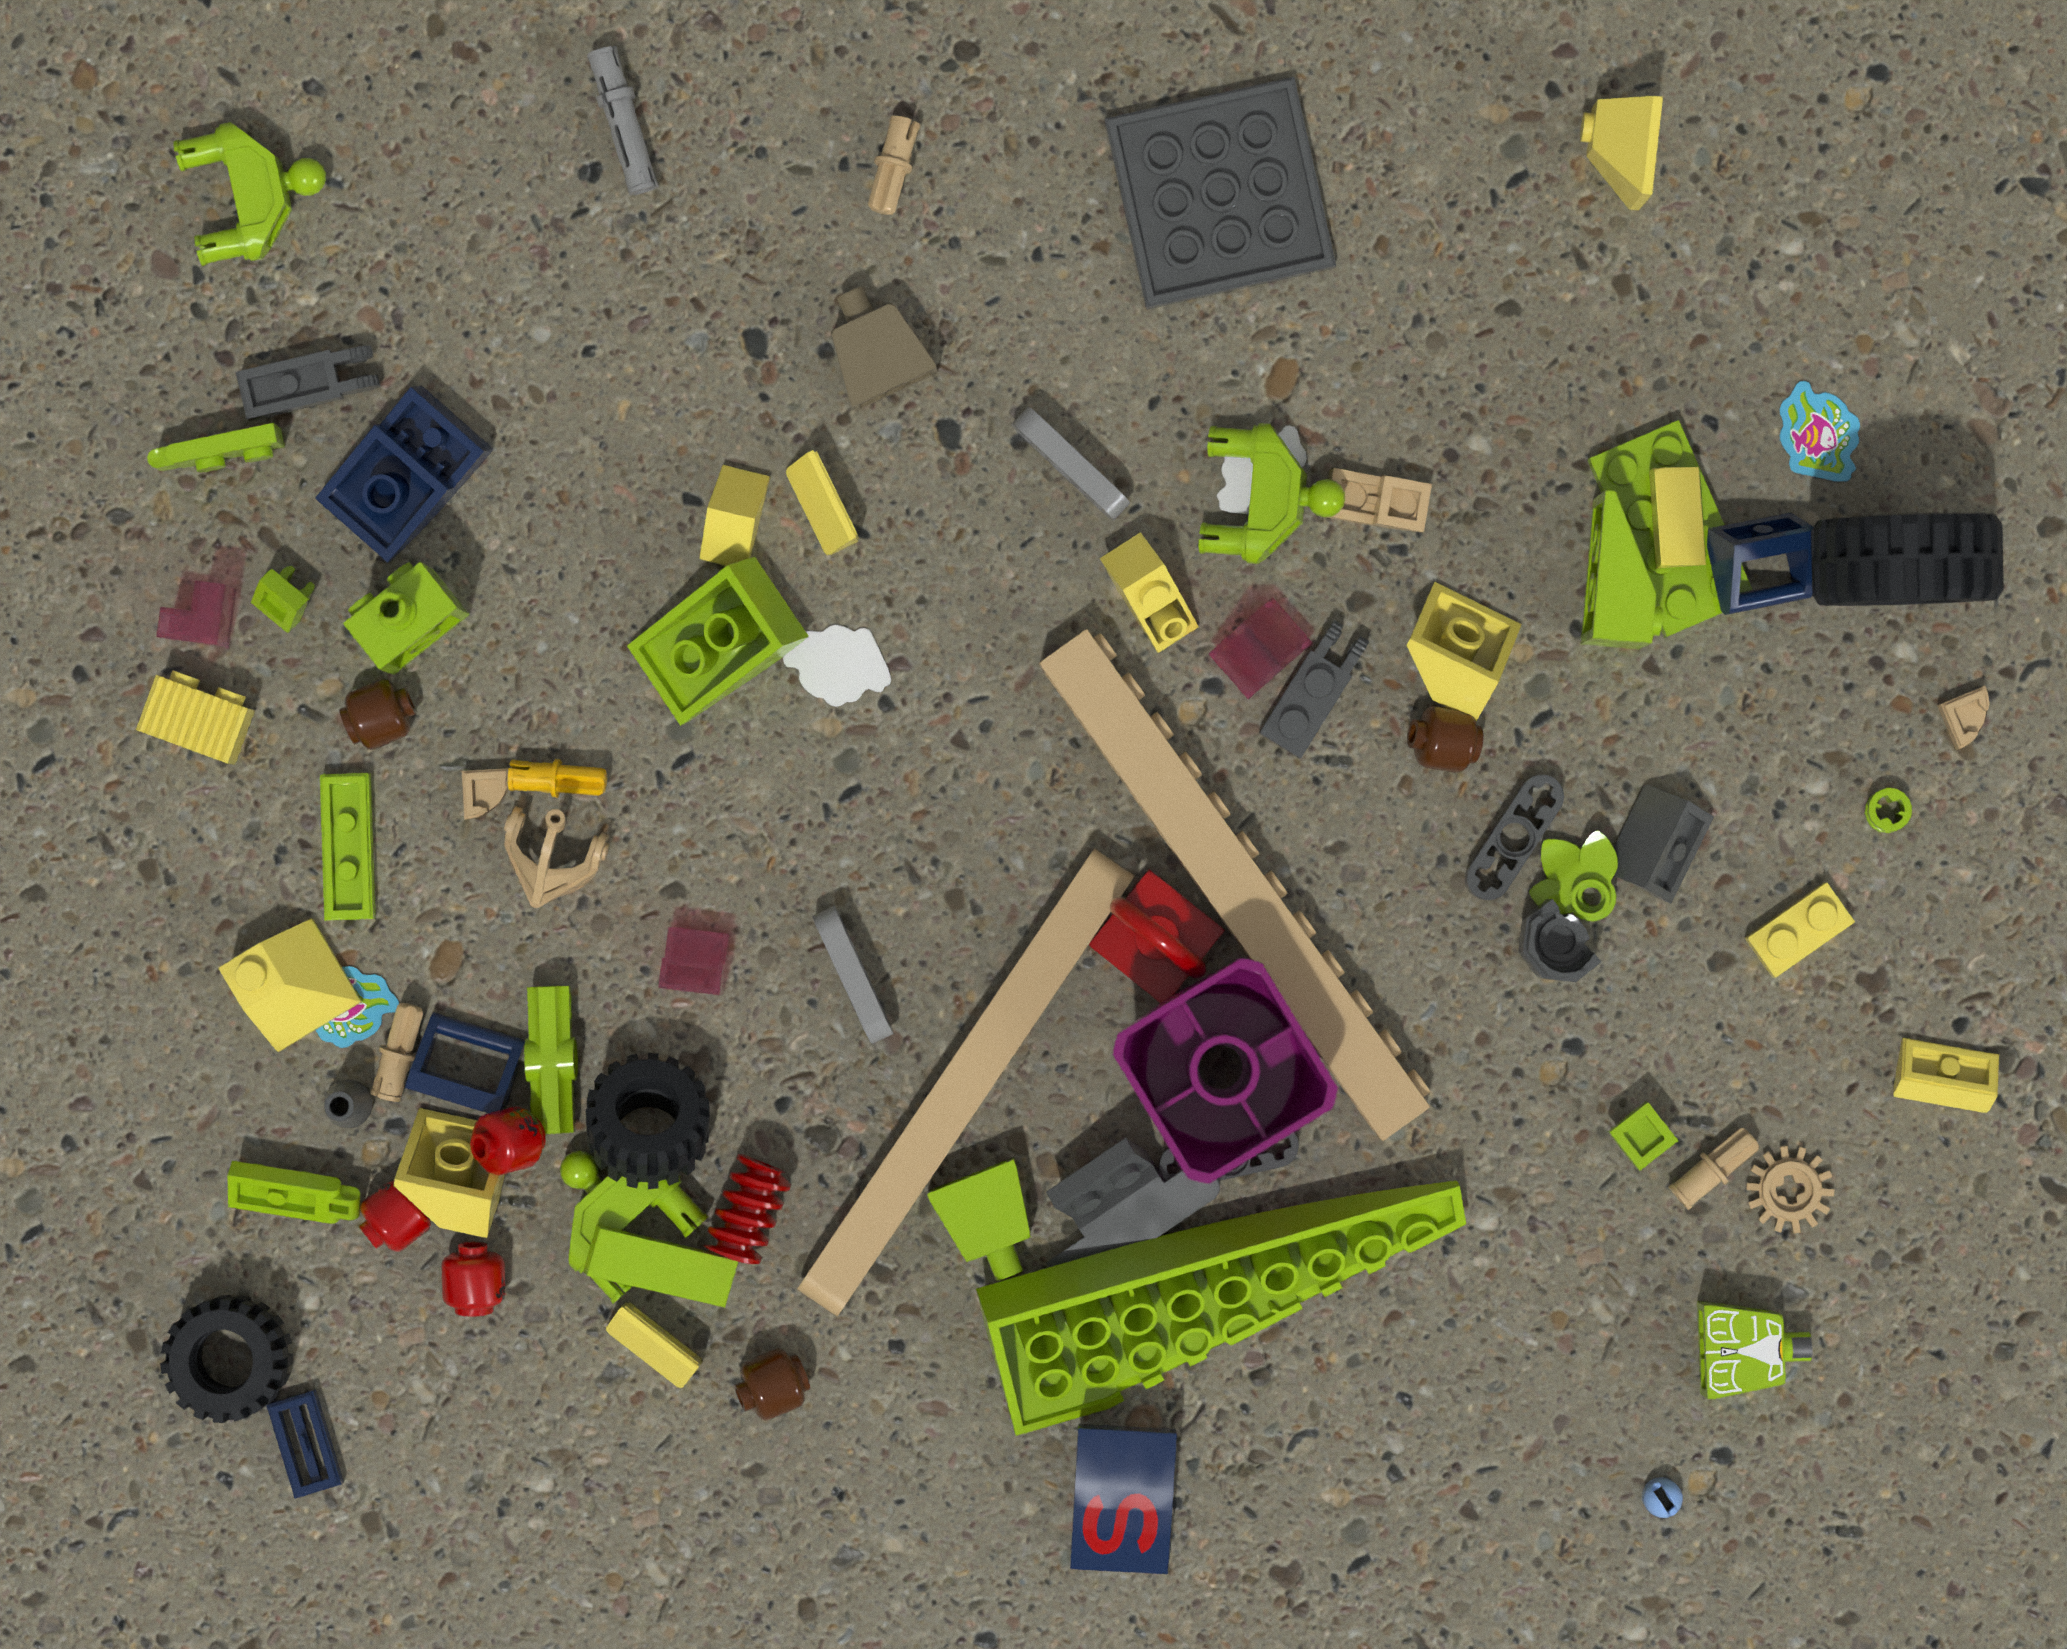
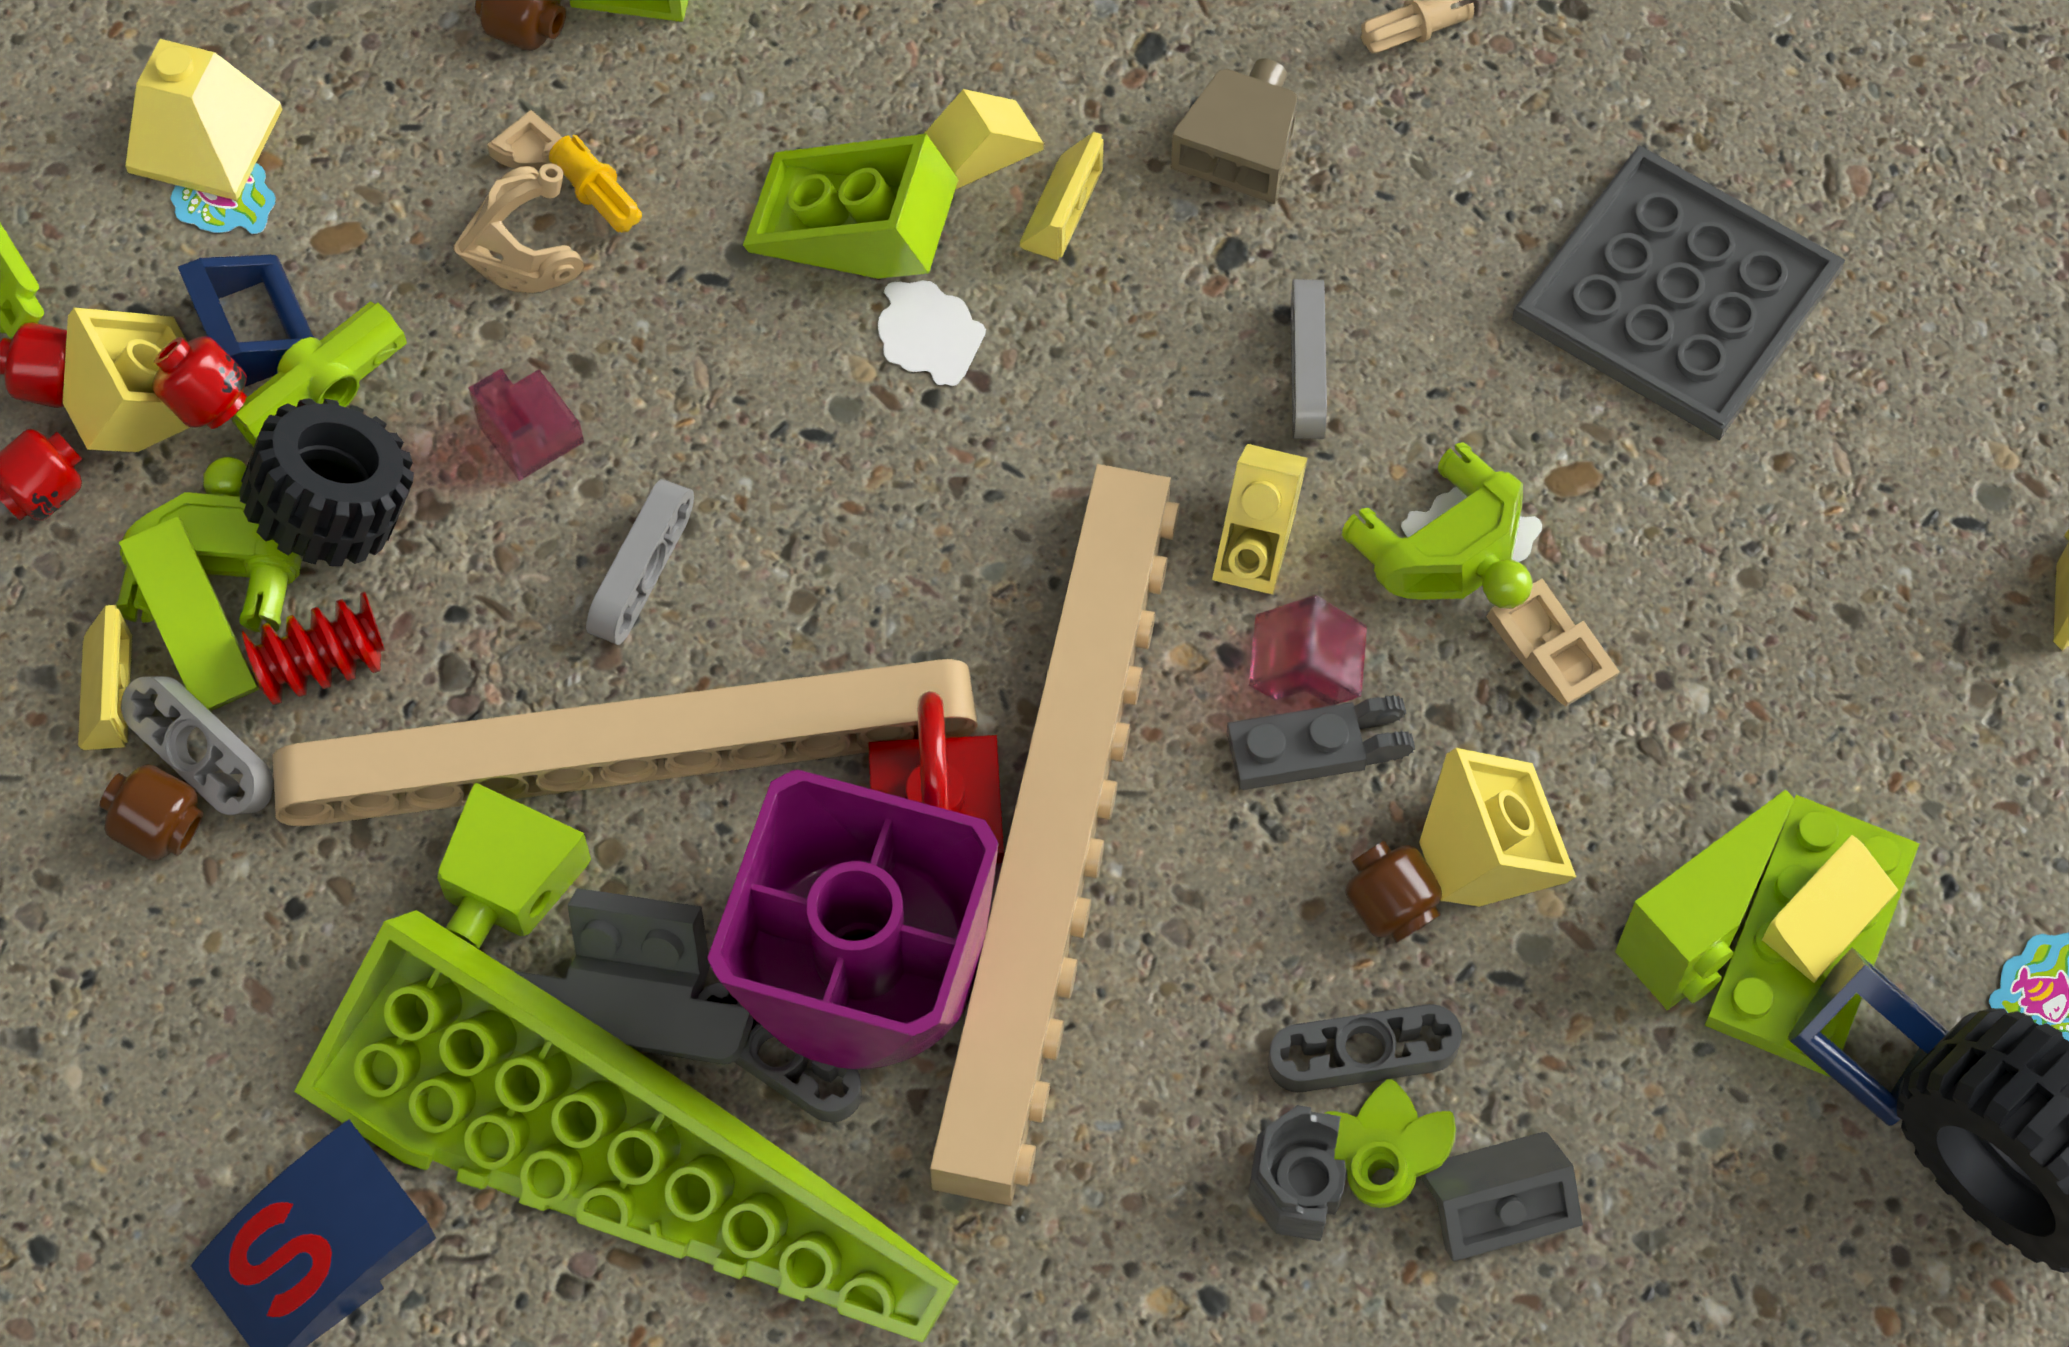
camera: 45 degrees right, 25 degrees down
(347, 846) = (374, 82): lime tile -> none
(359, 1103) = (119, 245): dark grey cone -> none
(397, 1053) = (239, 239): tan axle -> none
(763, 1310) = (223, 751): none -> light grey beam

